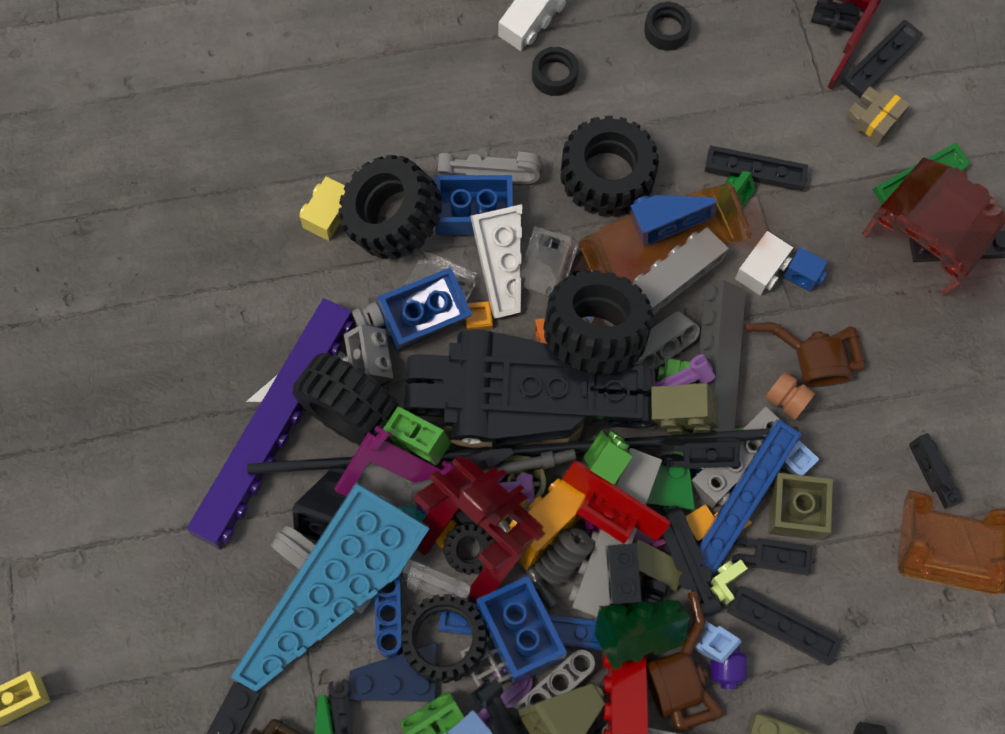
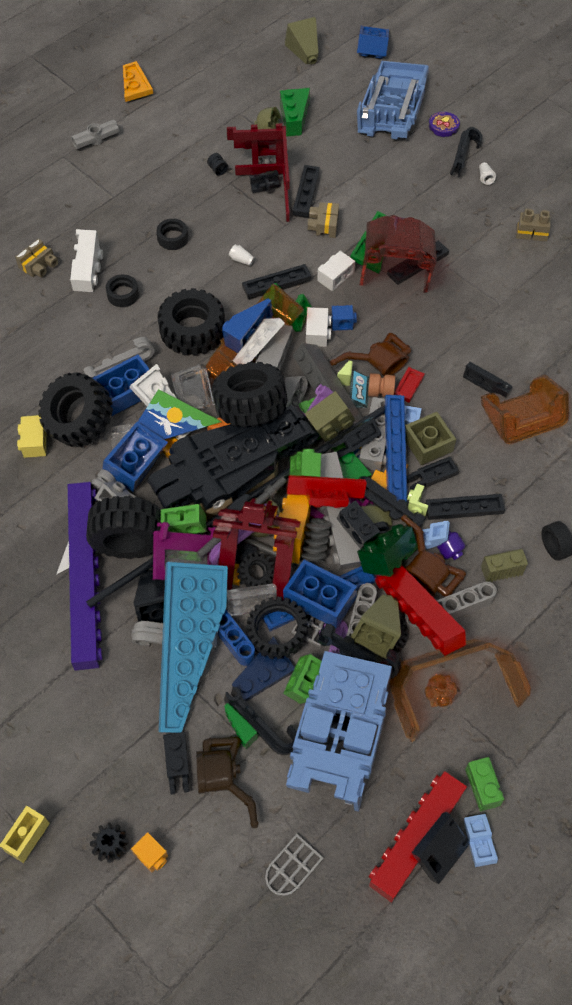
camera: 30 degrees left, 10 degrees down
(498, 285) = (172, 417): none -> sticker
(662, 247) = (258, 340): none -> white wing
(735, 105) = (240, 255): none -> white cone
(755, 351) = (344, 374): none -> yellowish green slope
(759, 222) = (300, 320): none -> green hinge
(759, 381) = (359, 389): none -> slope
(829, 413) = (409, 384): none -> red tile
(842, 197) = (336, 270): none -> white brick

